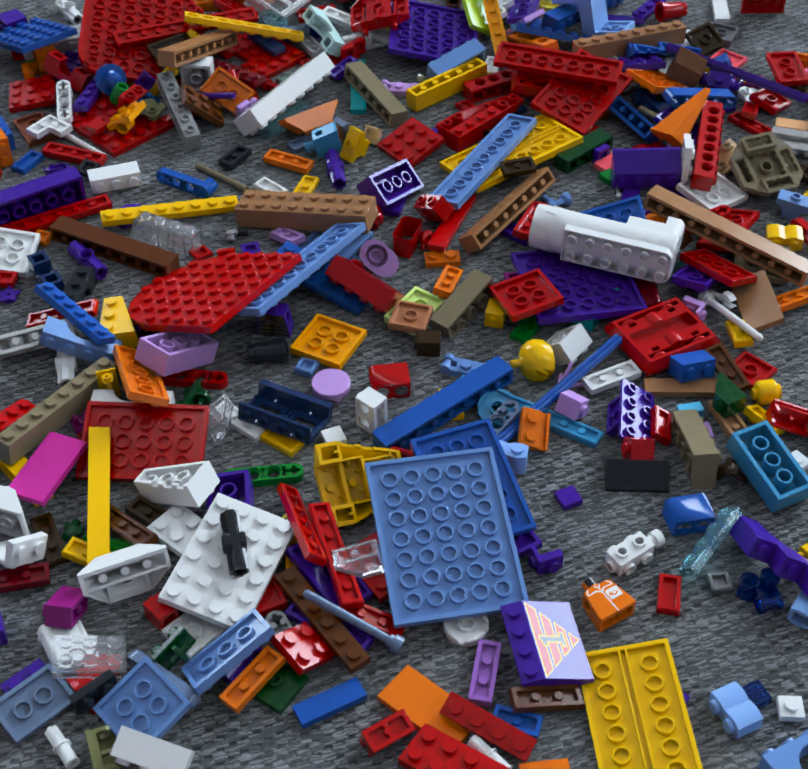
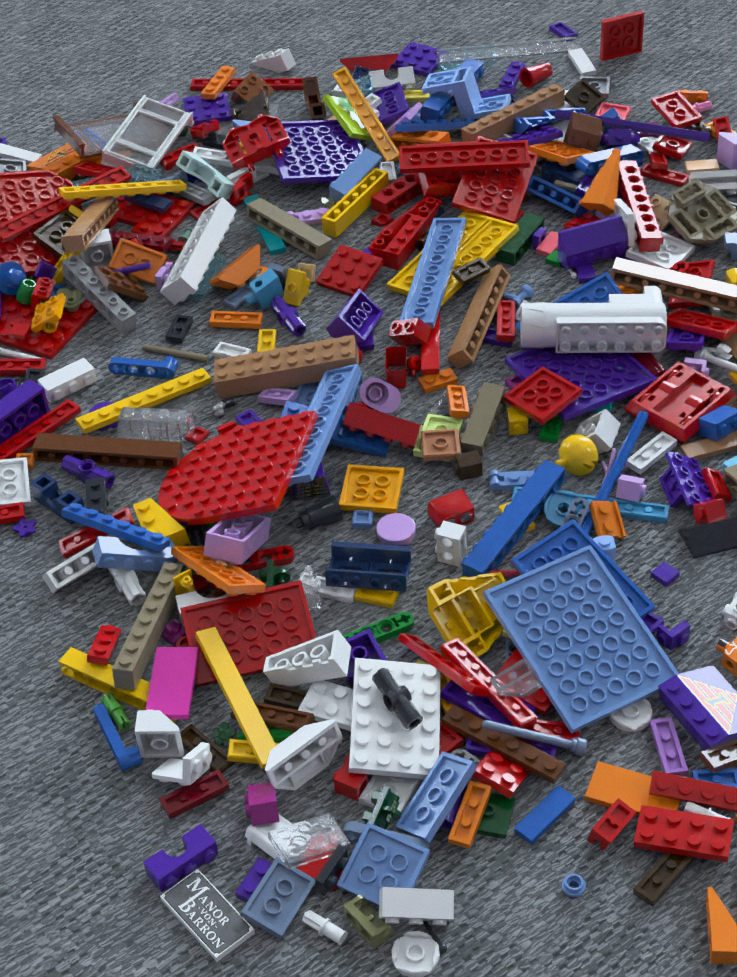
camera: 15 degrees left, 0 degrees up
(333, 434) = (423, 578): white tile -> none
(338, 70) = (241, 208): dark purple plate -> none

